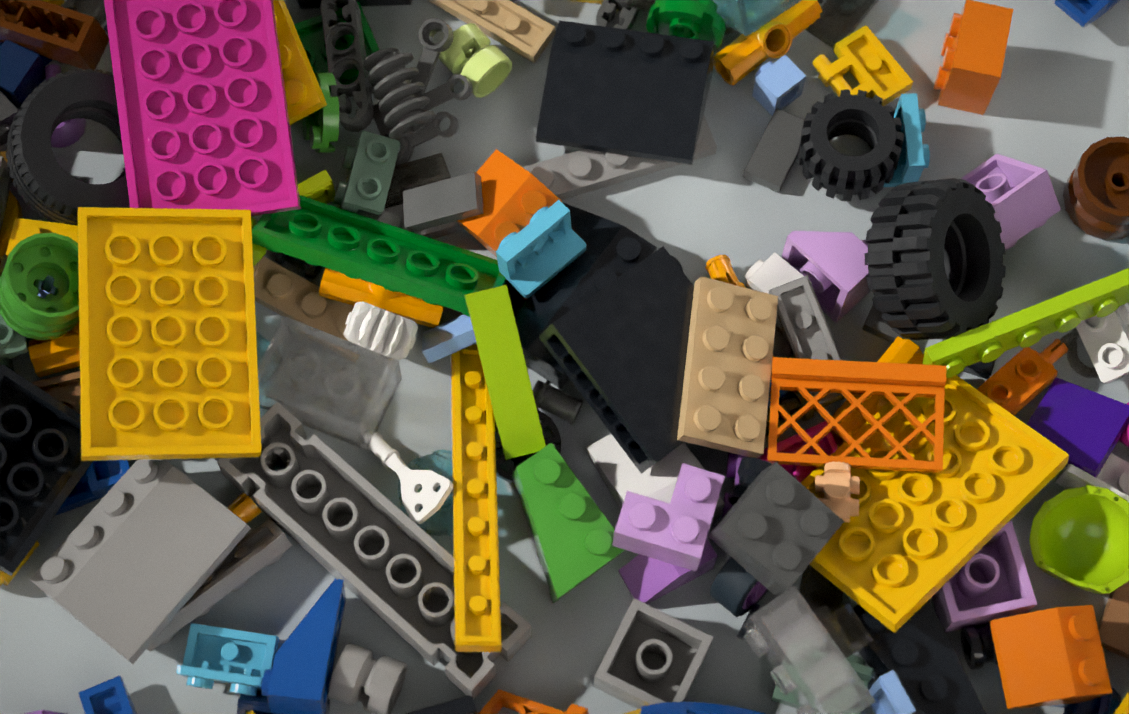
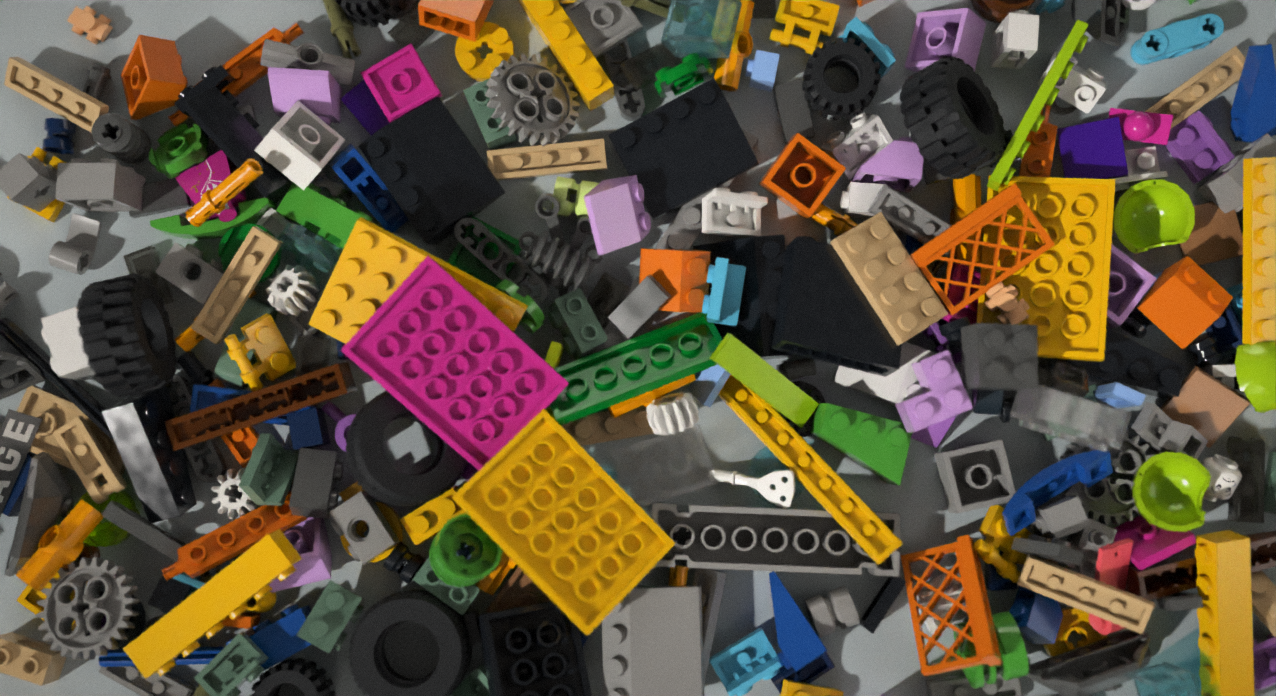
camera: 35 degrees left, 15 degrees up
(498, 95) = (617, 213): none -> lavender slope
(623, 190) = (732, 213): none -> white bracket
(728, 209) = (802, 176): none -> orange brick
(801, 217) = (857, 142): none -> white bracket
(1075, 245) = (1015, 40): none -> white brick

